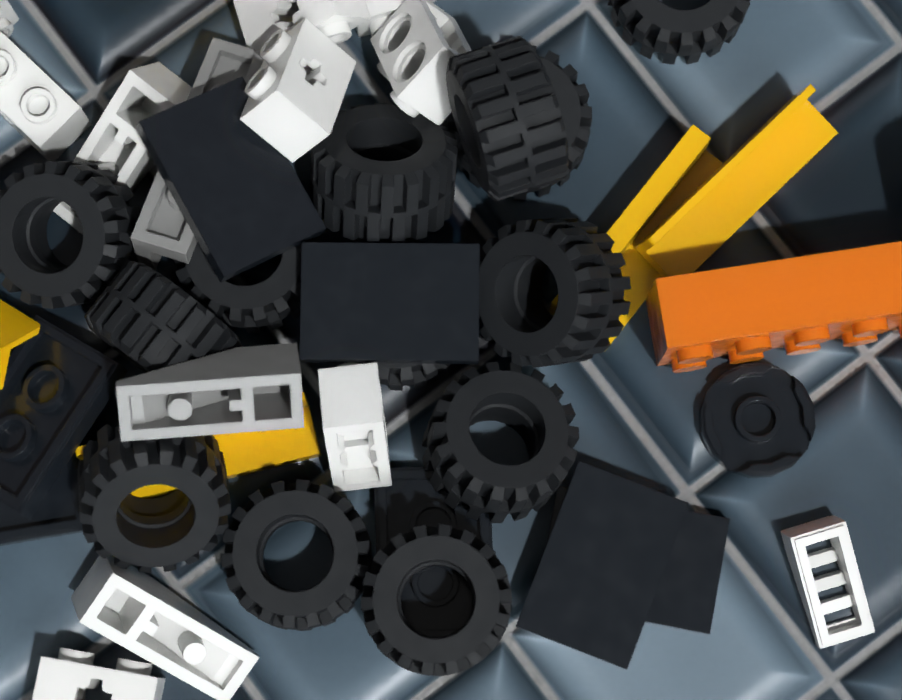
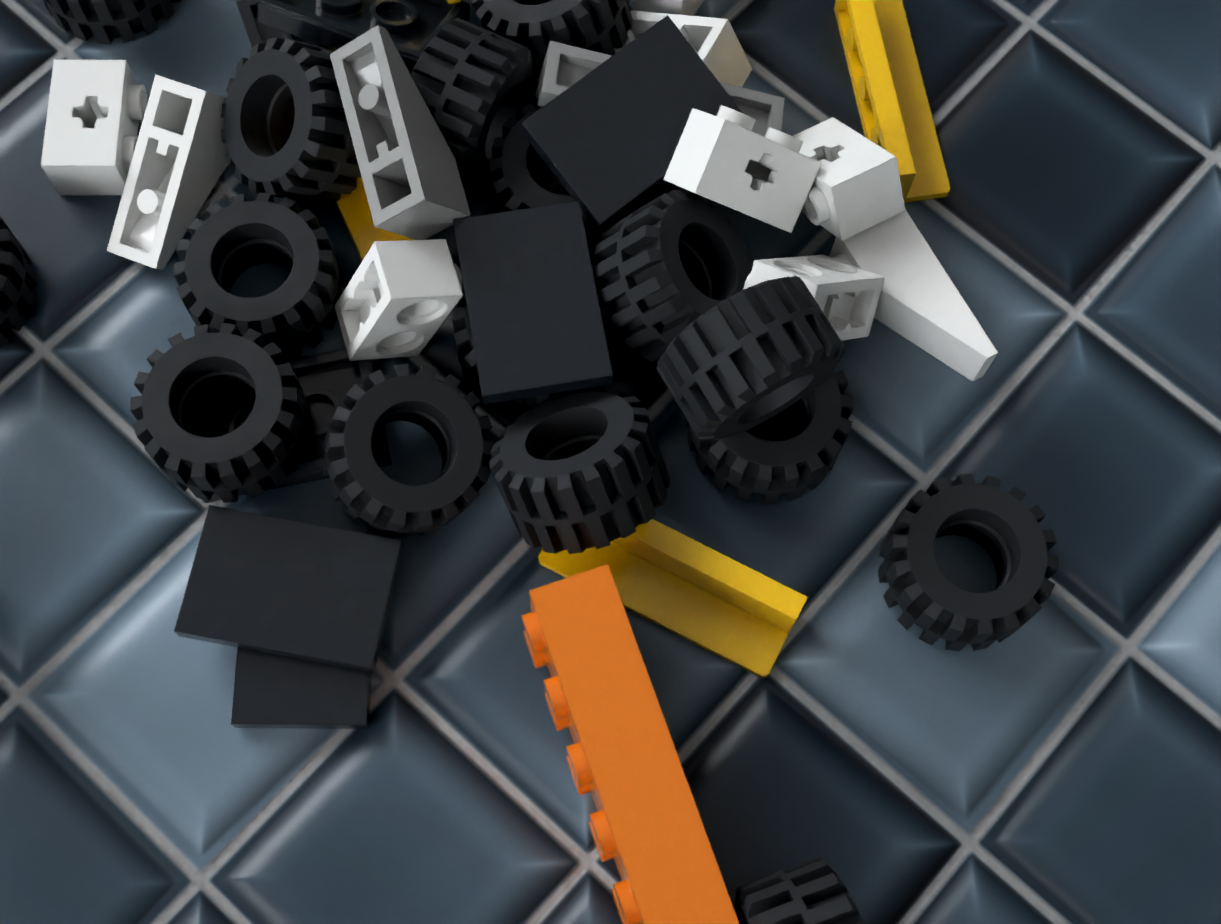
camera: 75 degrees right, 10 degrees down
(738, 188) = (752, 670): yellow panel -> none
(757, 420) = (487, 741): black tile -> none
(848, 574) = (363, 826): white slope -> none

